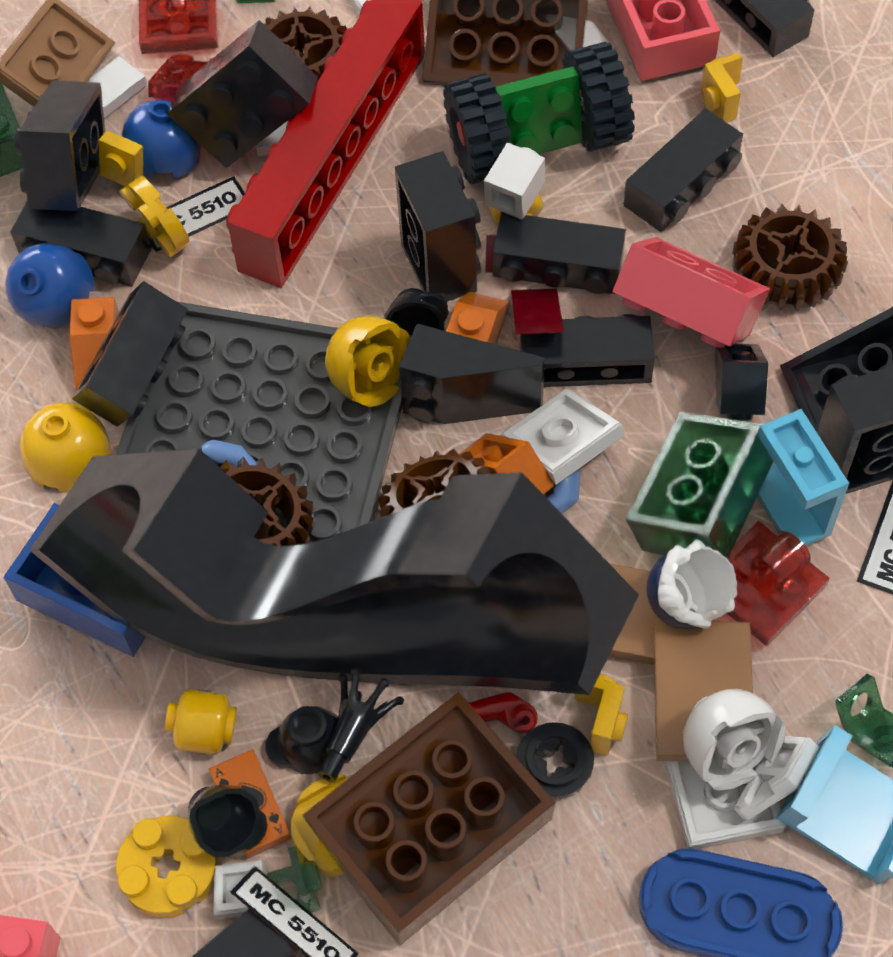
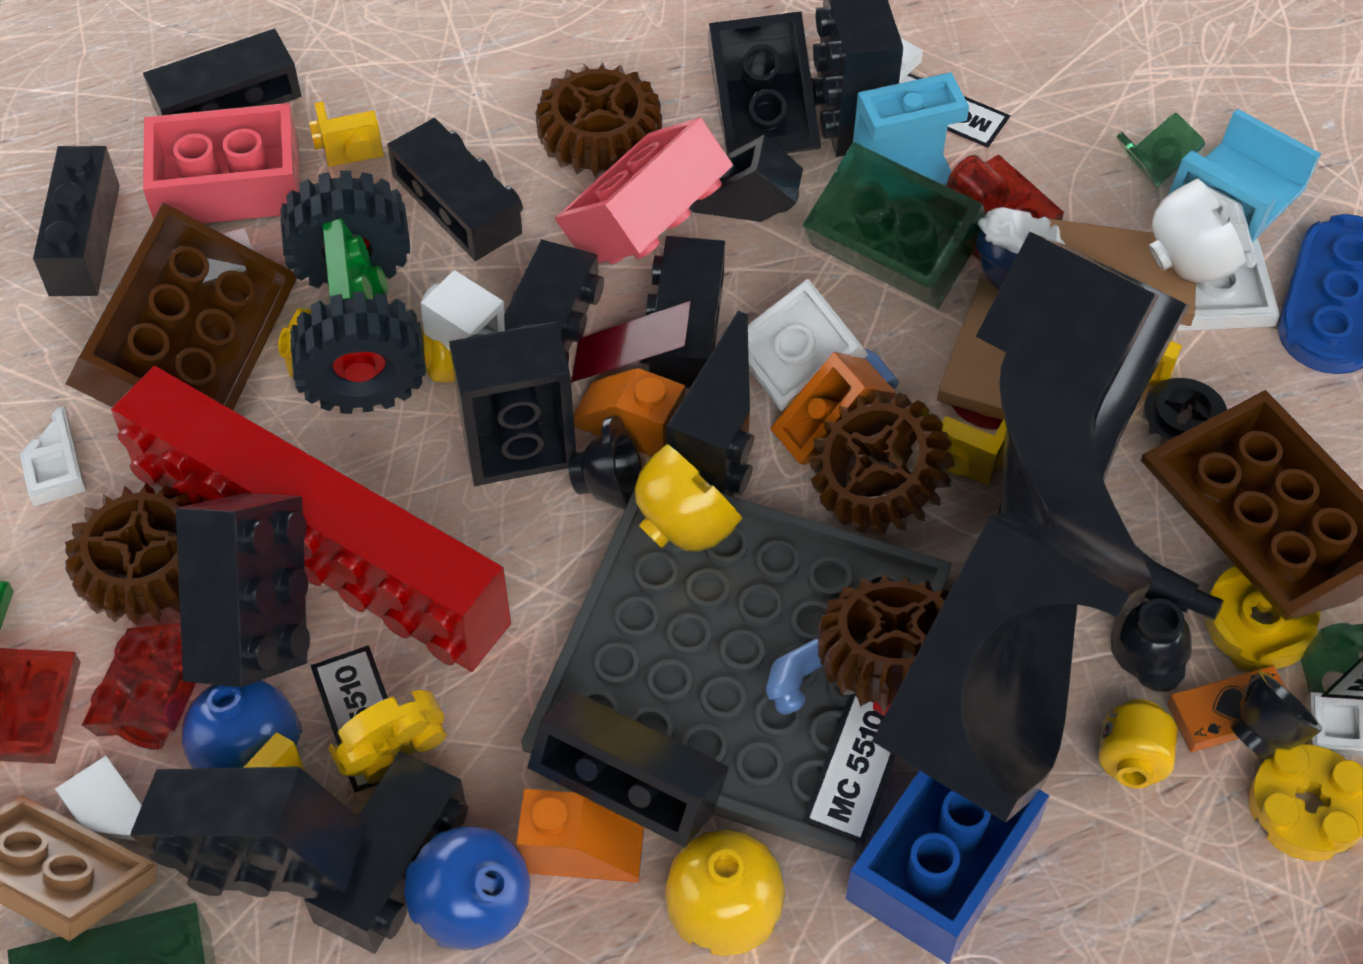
camera: 85 degrees left, 5 degrees down
(507, 709) = (1131, 445): red arm -> none

